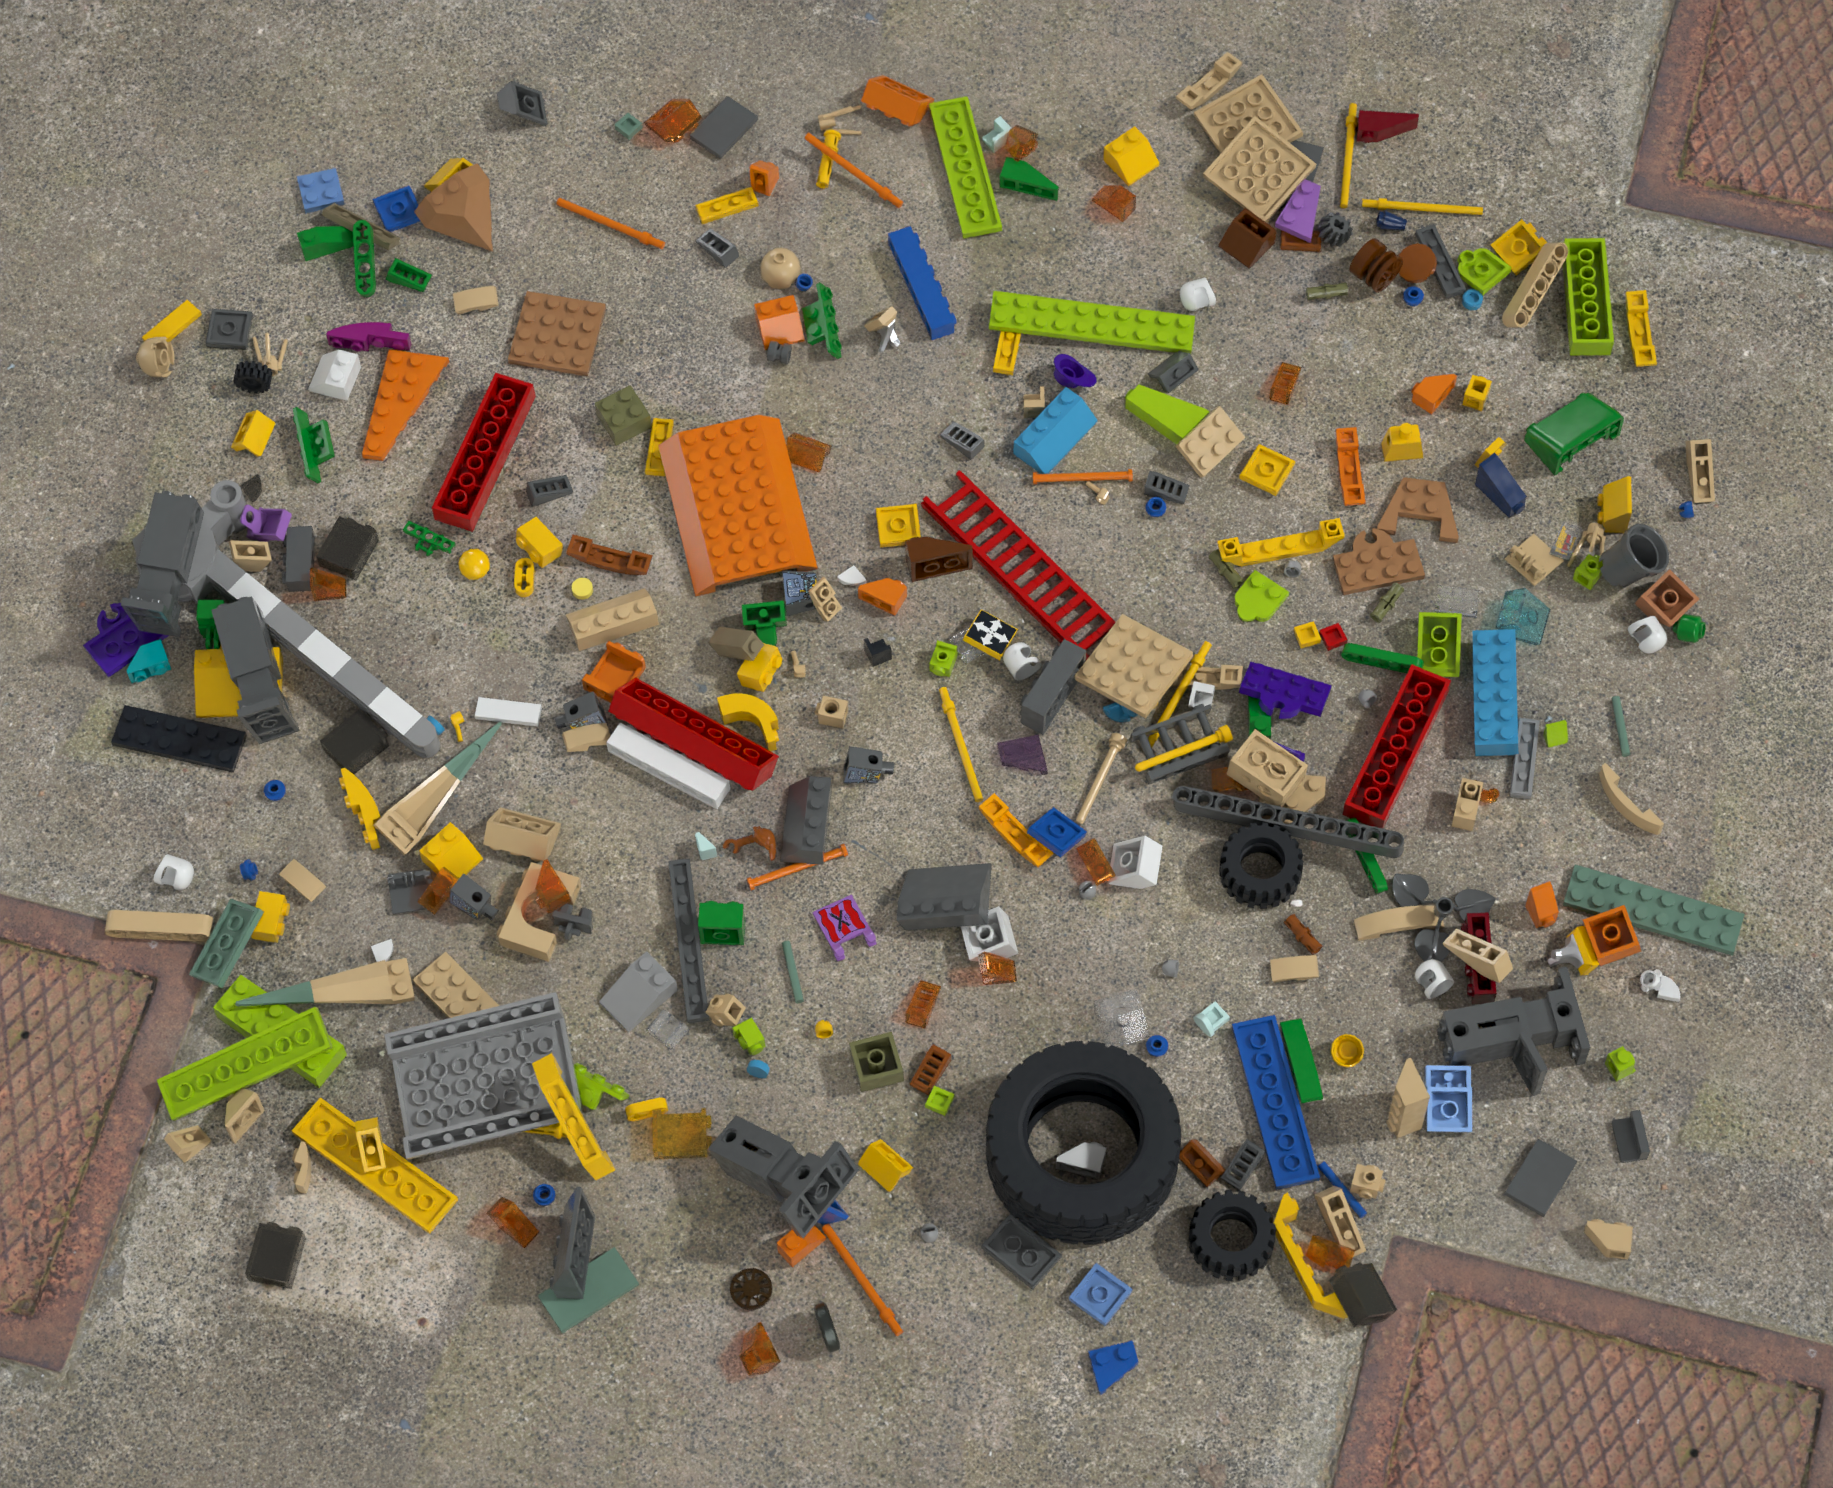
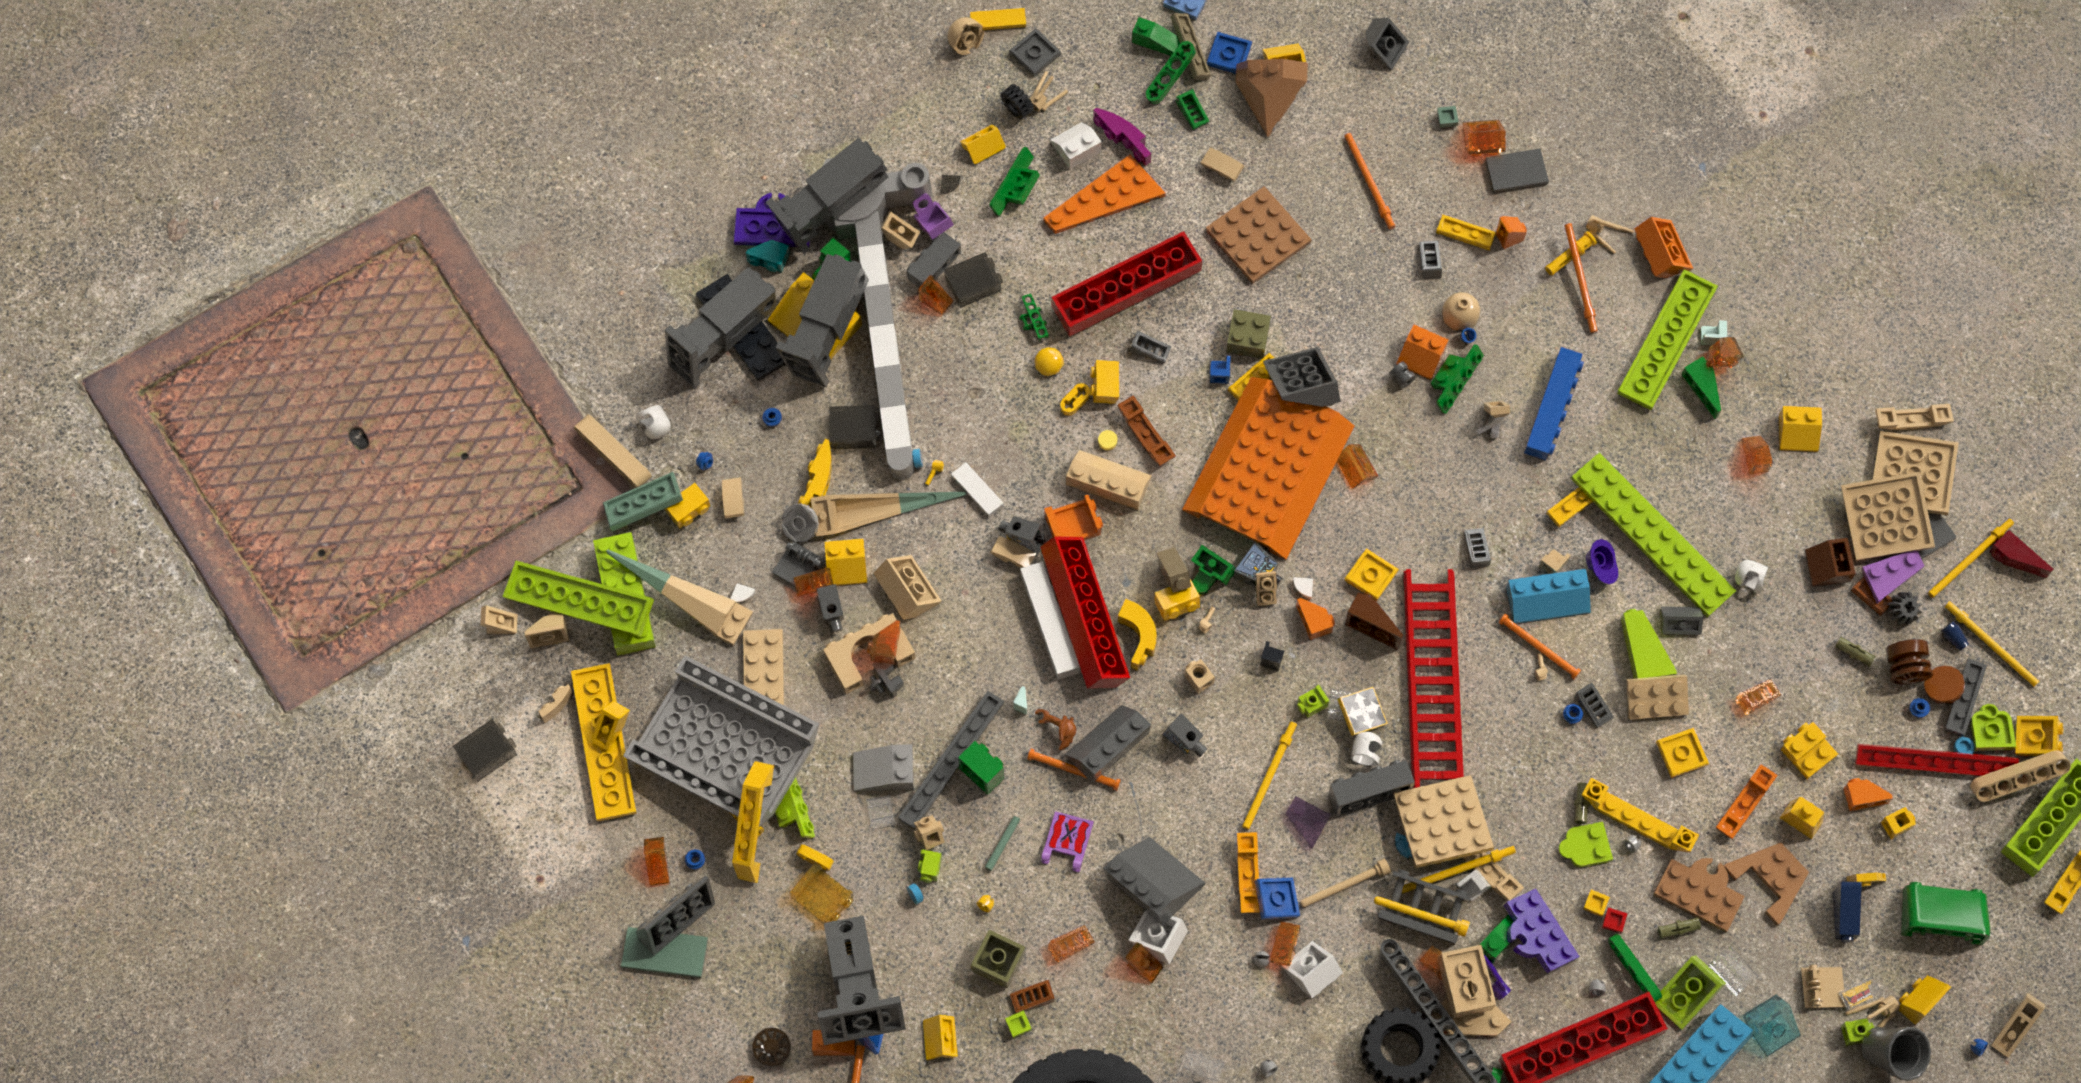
camera: 40 degrees right, 5 degrees up
(162, 747) = (719, 324): none -> dark grey brick
(381, 854) = (800, 523): none -> light grey tile
(627, 462) = (1220, 371): none -> blue panel
(706, 408) = (1304, 378): none -> dark grey slope
(1359, 392) = (1808, 749): none -> yellow plate
(1457, 327) = (1930, 760): none -> red plate

